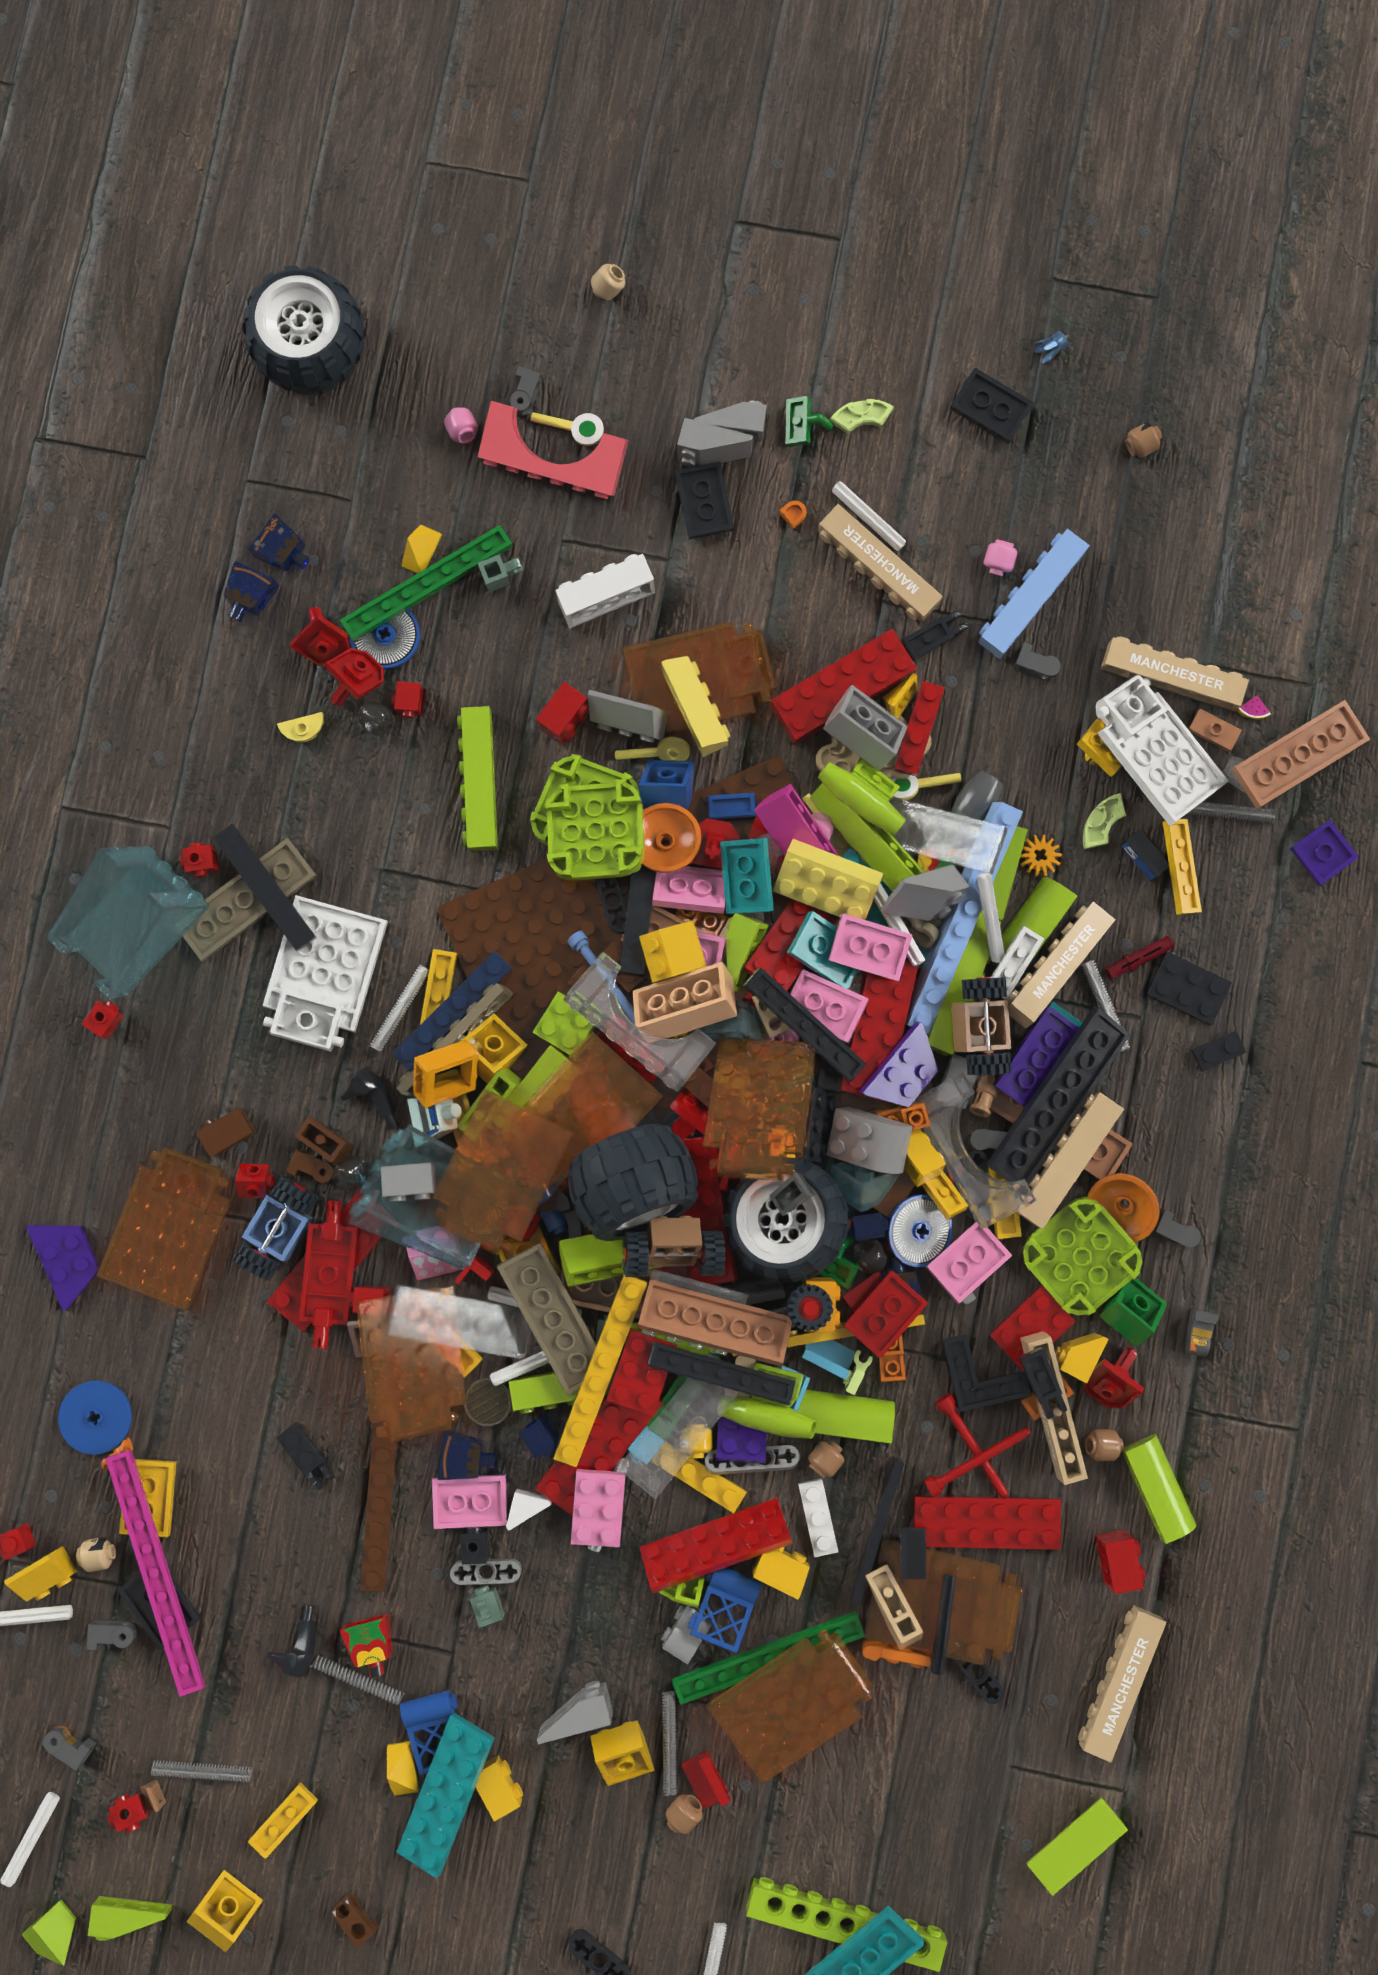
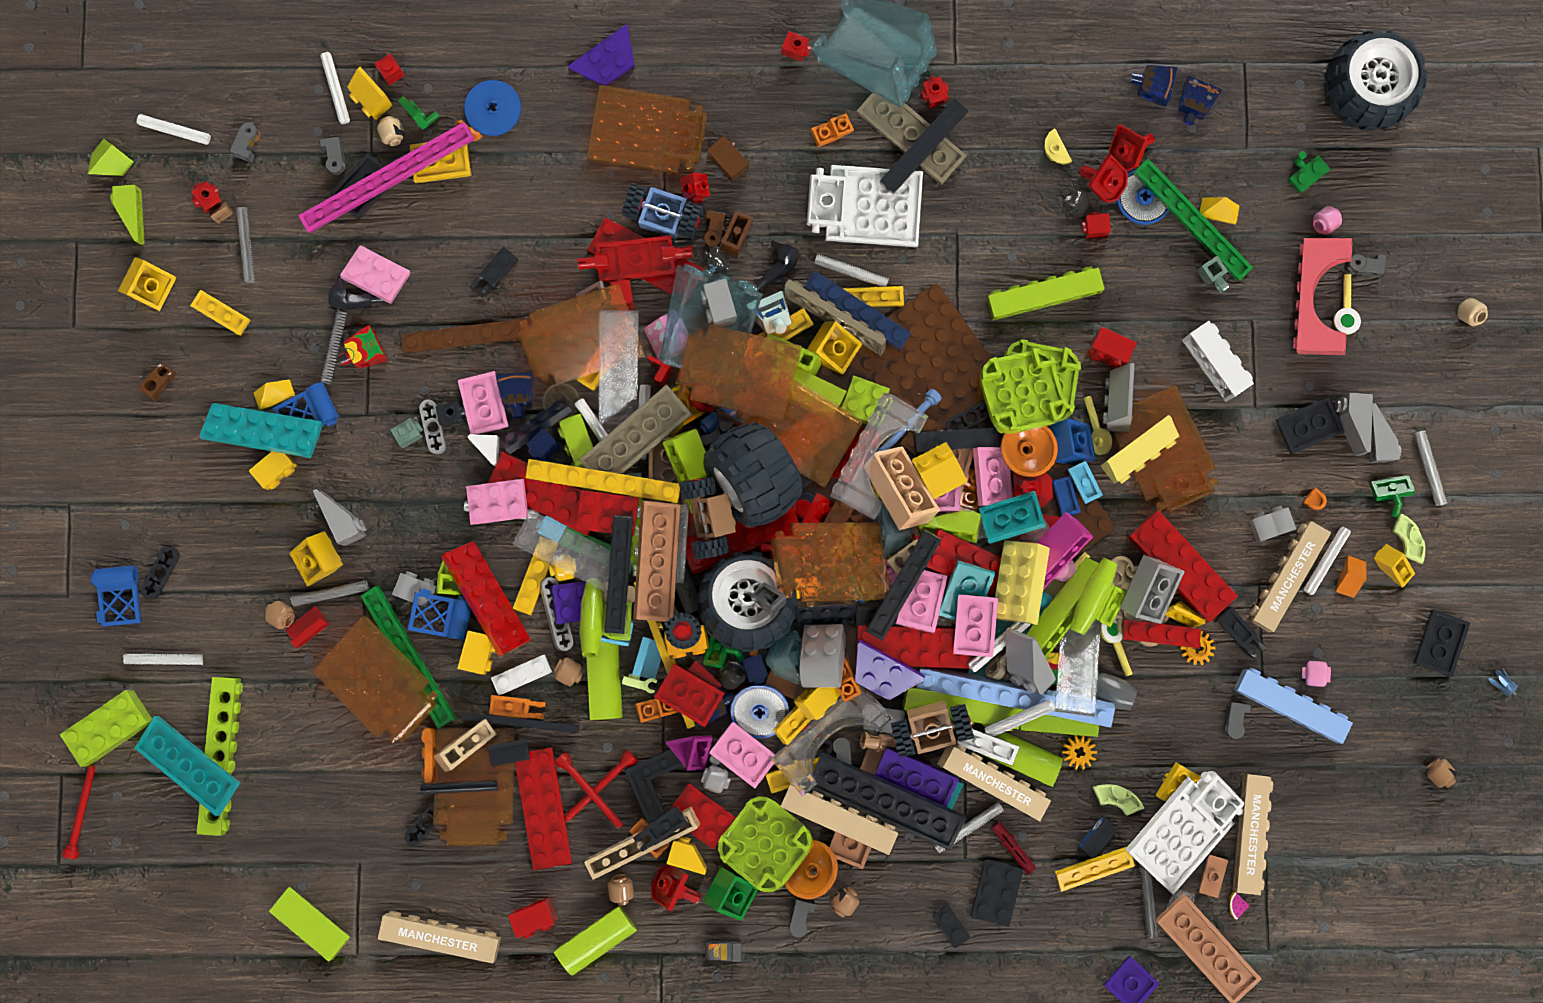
camera: 75 degrees right, 0 degrees up
(81, 1517) = (416, 113): none -> green plate
(219, 996) = (832, 130): none -> orange slope
(276, 1609) = (375, 274): none -> bright pink plate
(398, 434) = (1308, 173): none -> green plate
(428, 1064) = (816, 306): light orange window -> none
(508, 1431) = (543, 420): none -> black plate
(719, 779) = (1085, 482): none -> medium azure panel
(783, 371) = (1430, 468): none -> white axle
(813, 570) = (1272, 524): none -> light grey brick
(856, 1534) = (514, 707): none -> orange hinge
(889, 439) = (1394, 565): none -> yellow slope
(893, 491) = (1351, 577): none -> orange slope
(951, 684) = (1201, 654): none -> light orange gear
(954, 1324) = (691, 751): none -> magenta slope
(992, 1301) = (715, 779): none -> light grey head
(1167, 1173) = (845, 902): none -> medium nougat head

